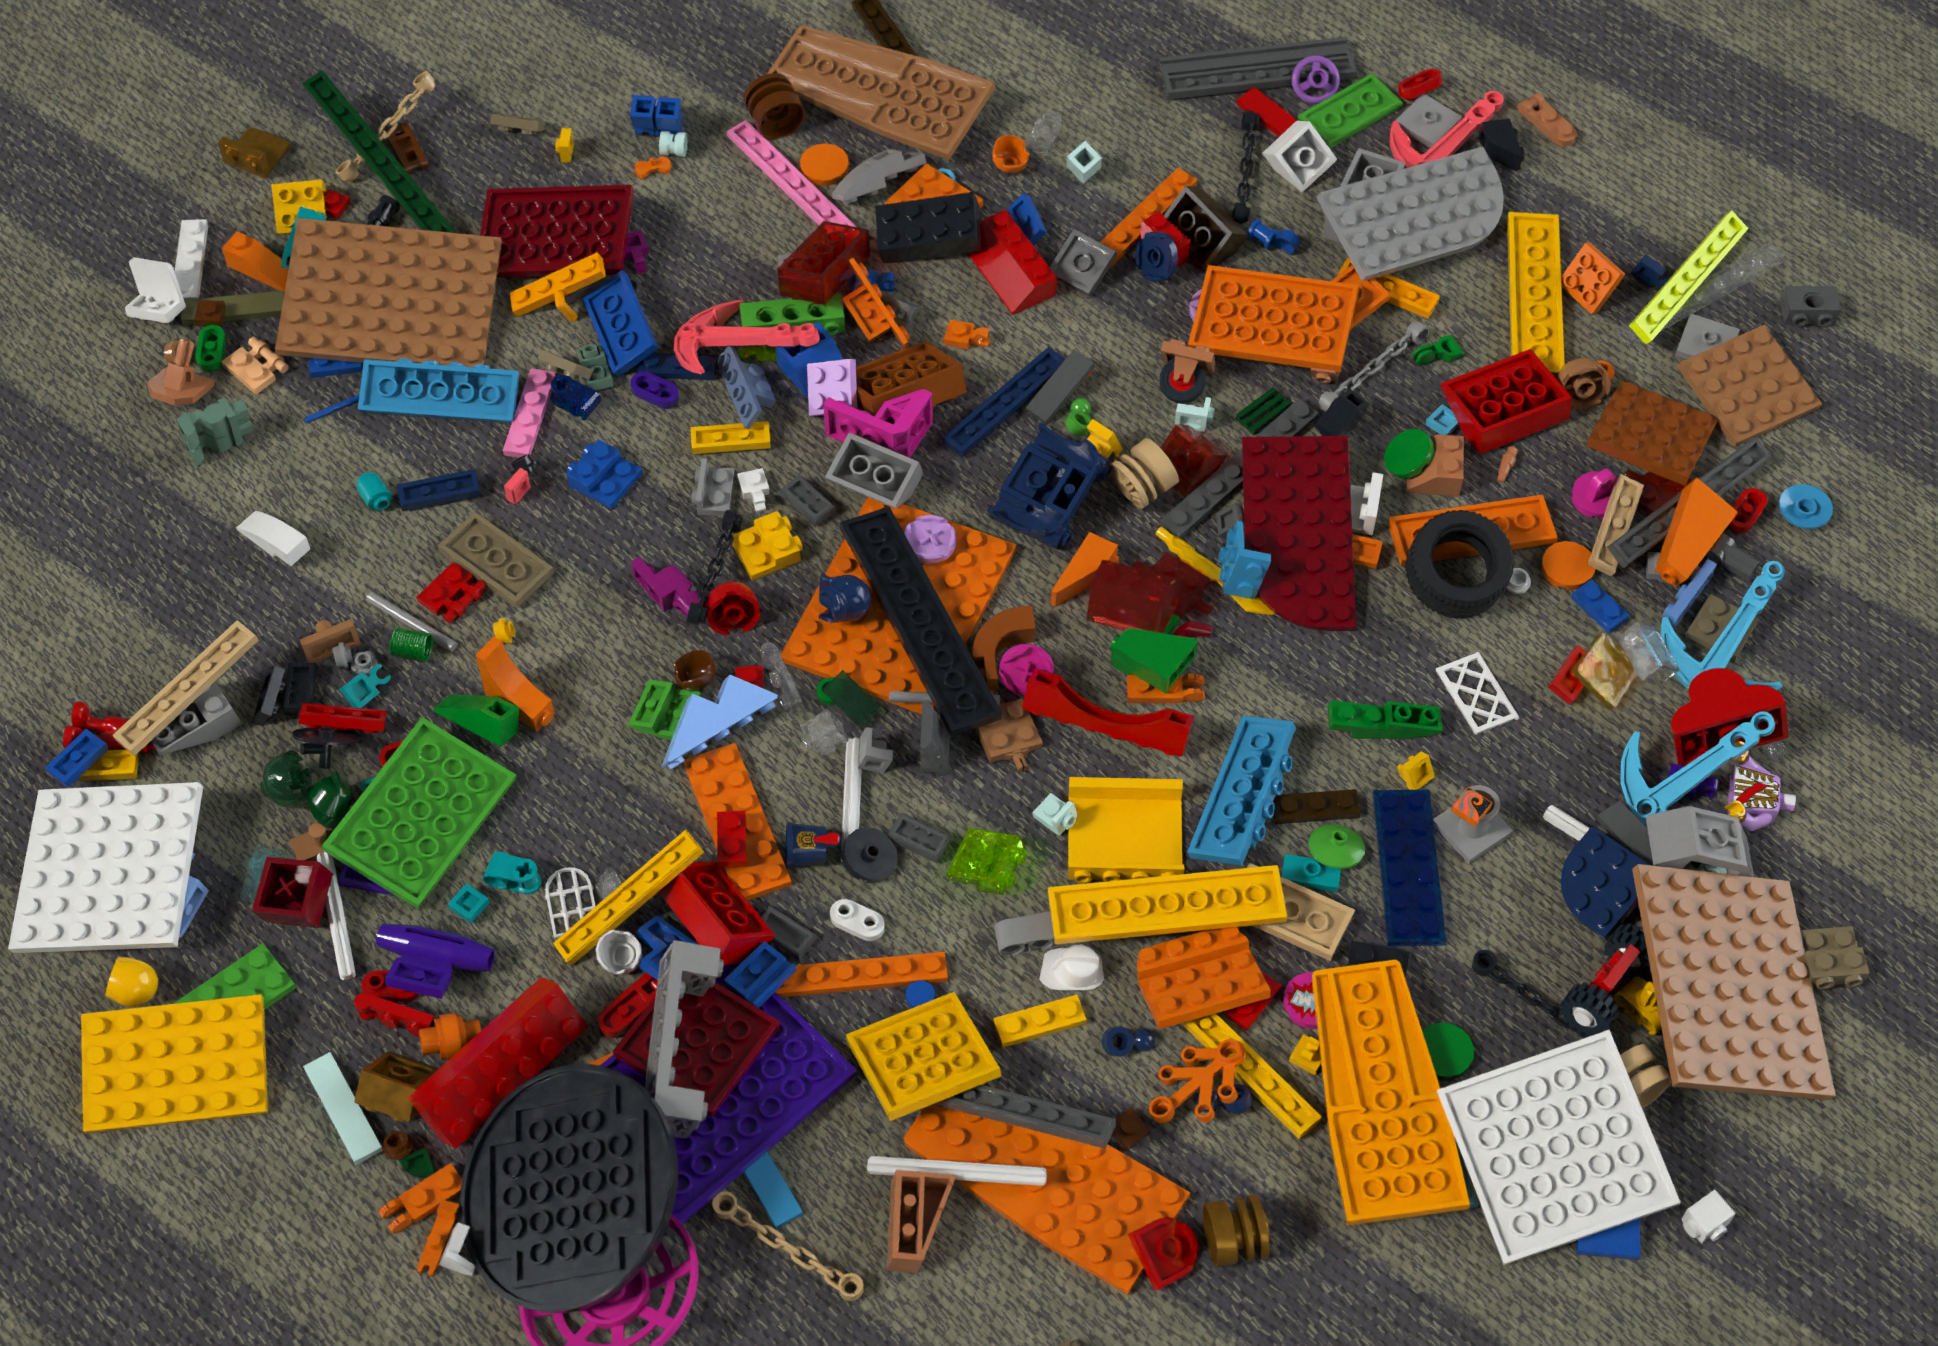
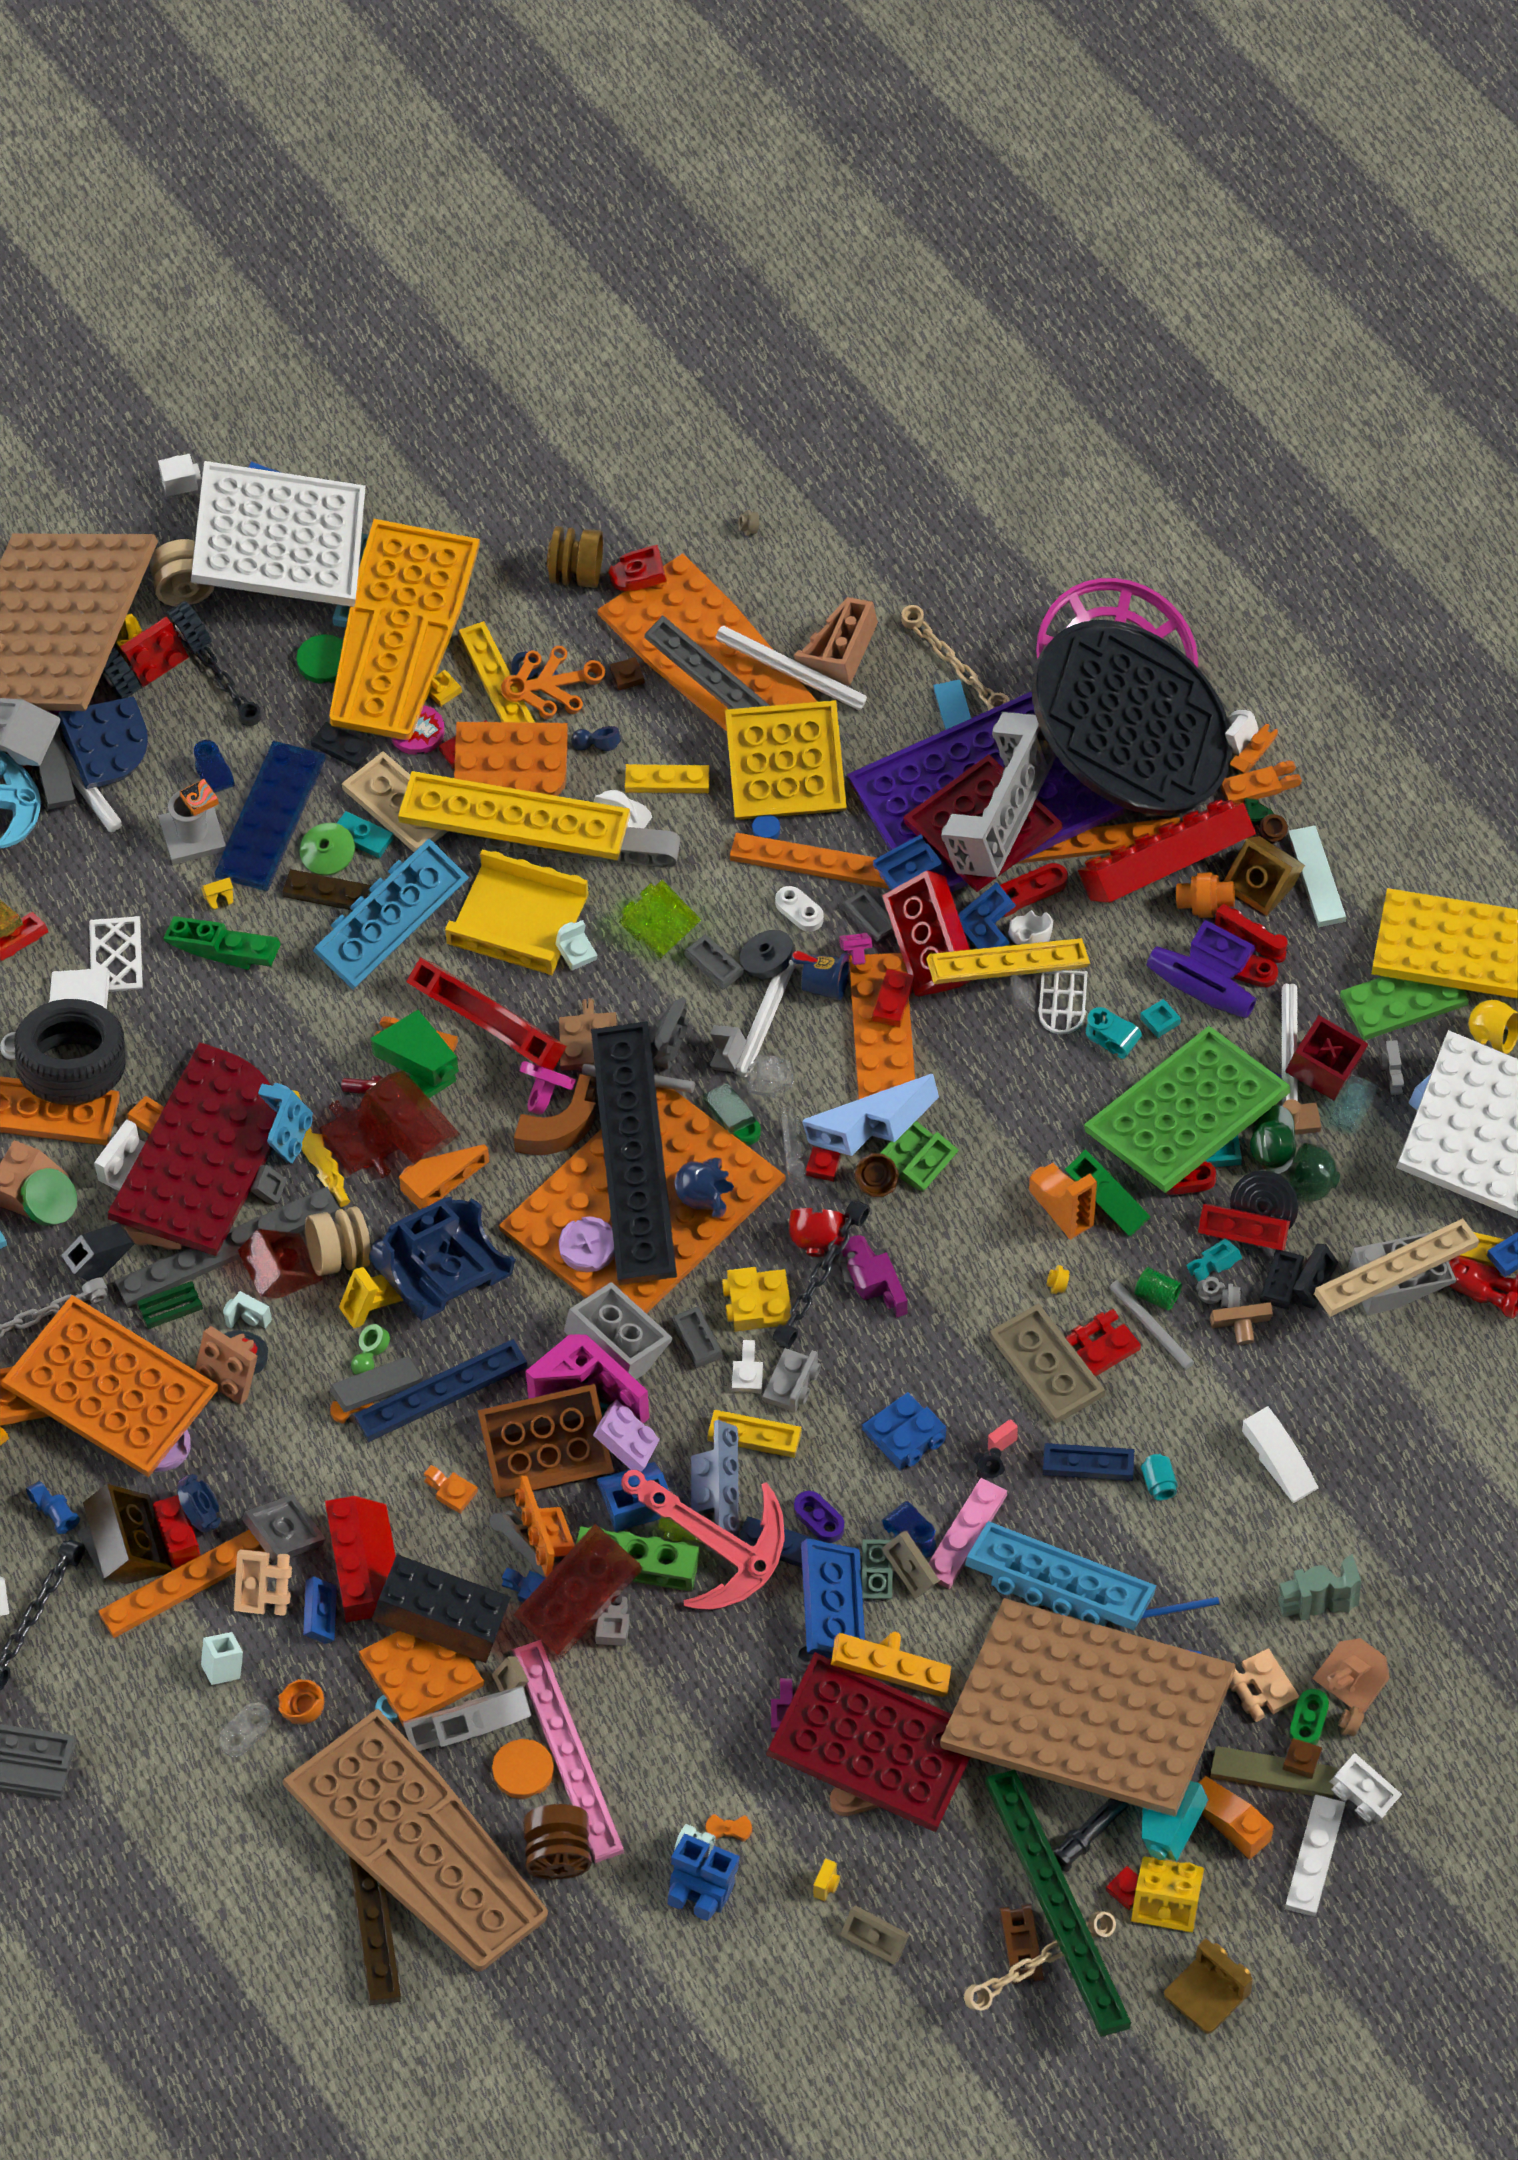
camera: 160 degrees left, 0 degrees up
(231, 920) = (1391, 1062): none -> light grey plate
(785, 881) = (855, 946): none -> dark pink plate
(857, 213) = (510, 1674): none -> dark tan plate
(1086, 217) = (252, 1582): none -> light nougat plate
(1486, 639) = (81, 984): none -> white tile
(1487, 890) = (212, 766): none -> clear blue piece

